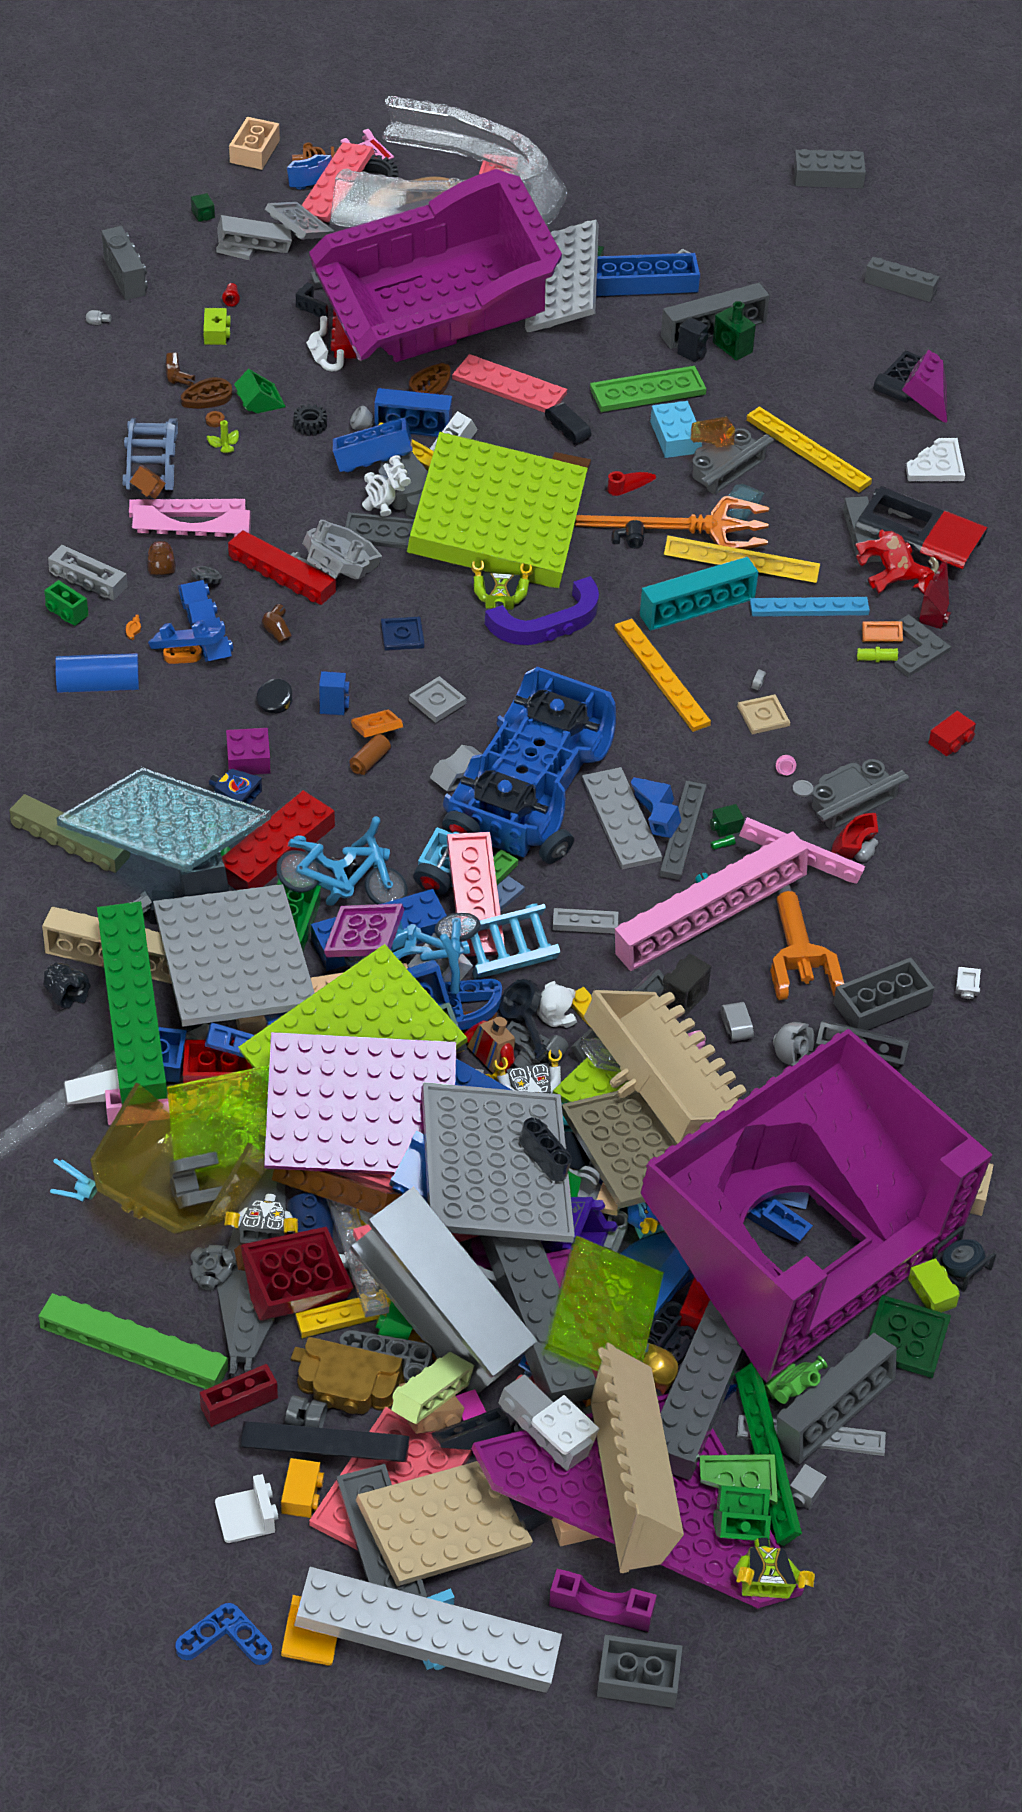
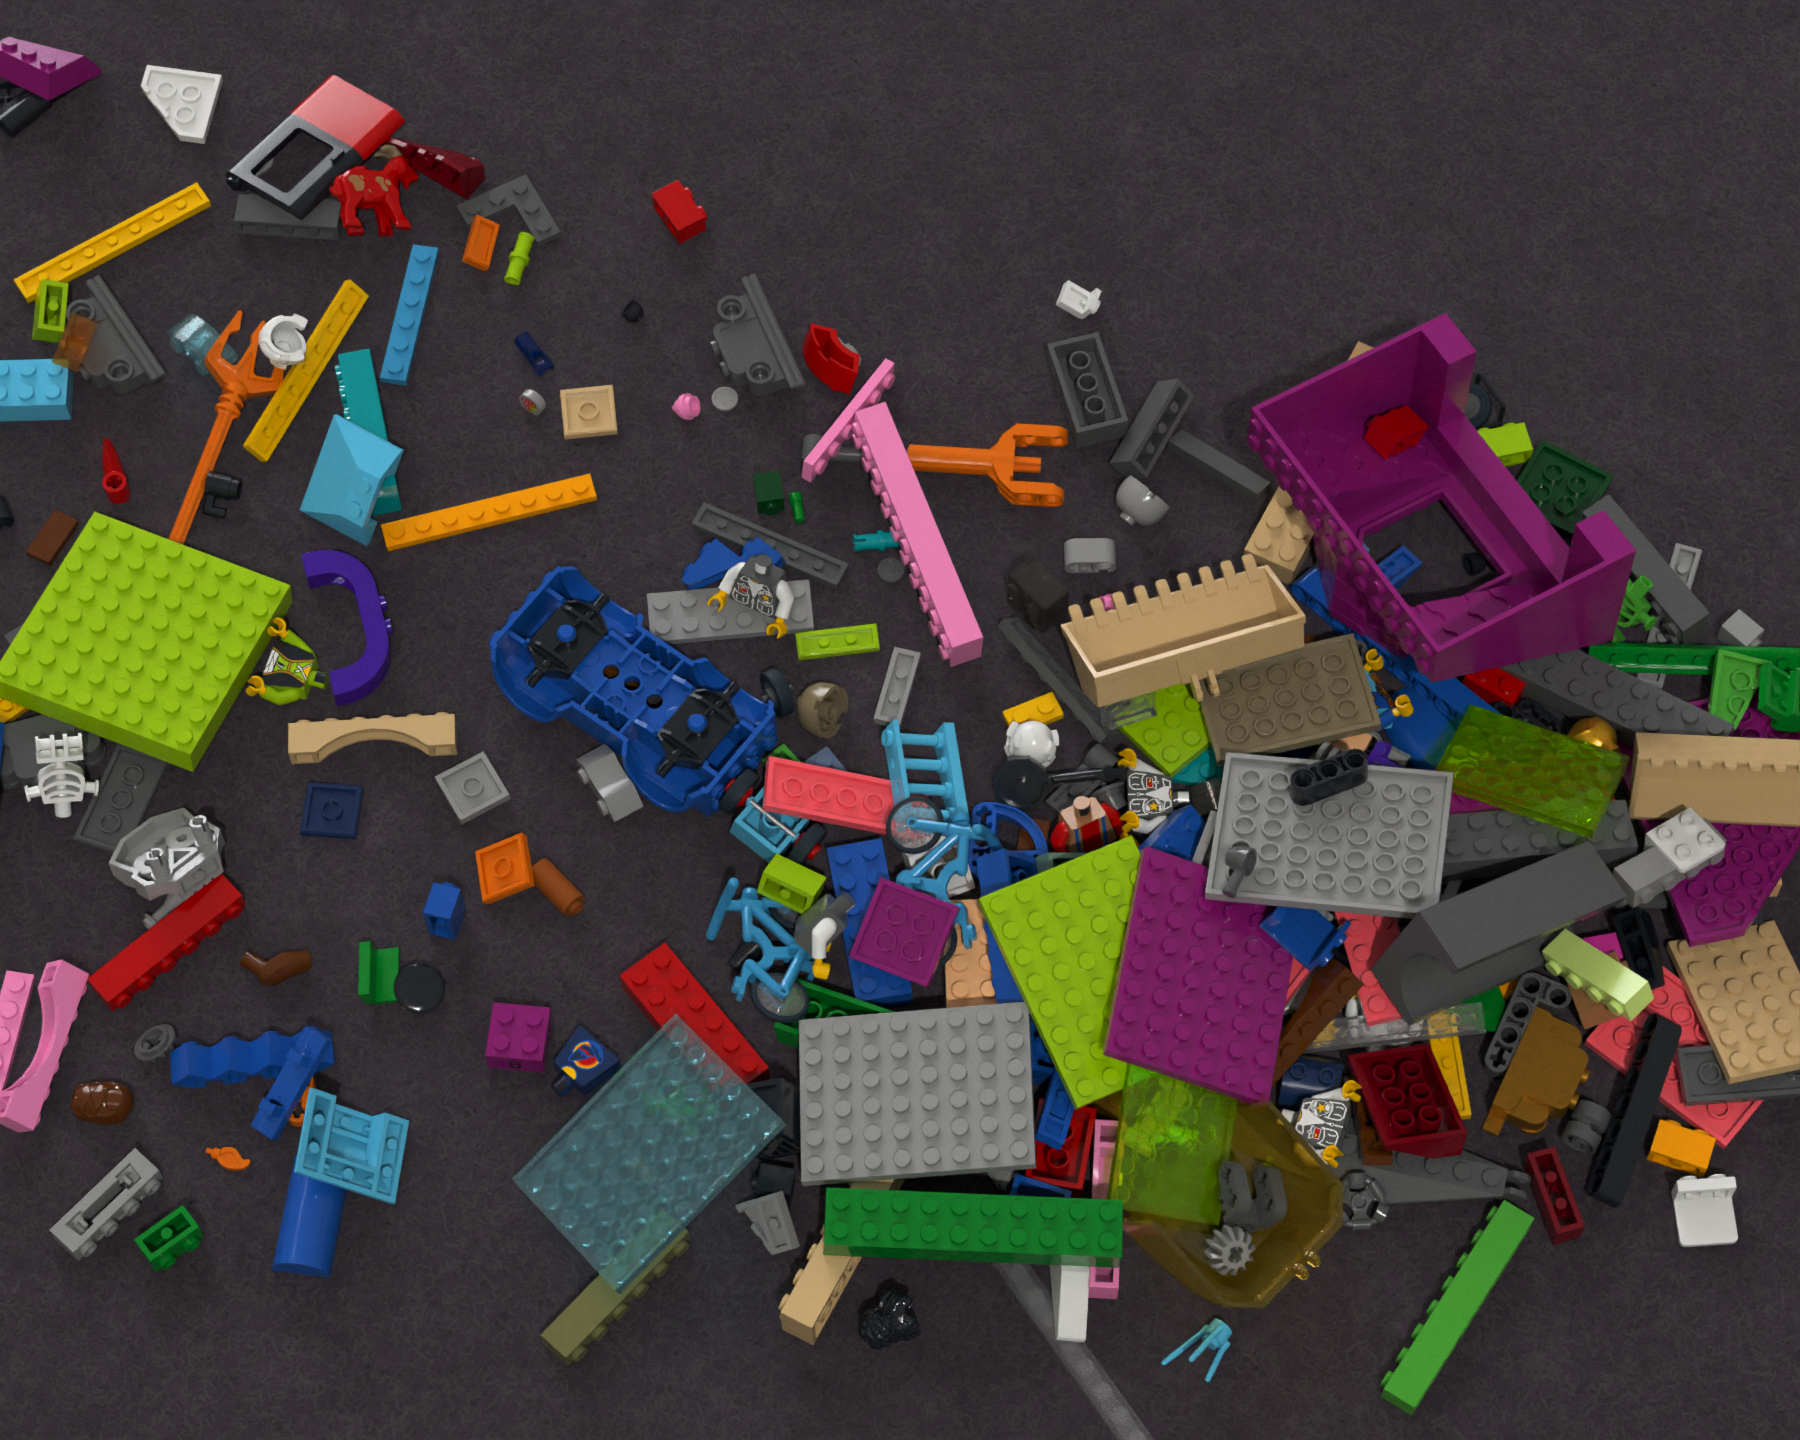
camera: 75 degrees left, 15 degrees up
(143, 671) = (351, 1147): none -> medium azure slope
(150, 1176) = (1229, 1250): none -> light grey gear
(283, 668) = (377, 973): none -> green panel
(356, 882) = (820, 926): none -> dark grey torso
(396, 871) = (791, 884): none -> lime brick
(447, 1098) = (1242, 861): none -> dark grey bar
(451, 614) = (316, 740): none -> tan arch
(548, 872) = (821, 704): none -> dark tan cylinder
(616, 882) = (837, 641): none -> lime tile
(635, 820) = (759, 587): none -> torso
(662, 581) = (350, 479): none -> medium azure slope
(745, 419) = (50, 311): none -> lime brick
(750, 531) = (282, 341): none -> white helmet
(801, 675) = (532, 352): none -> clear blue bar
(856, 723) = (632, 311): none -> black hinge
(903, 1186) = (1395, 431): none -> red brick

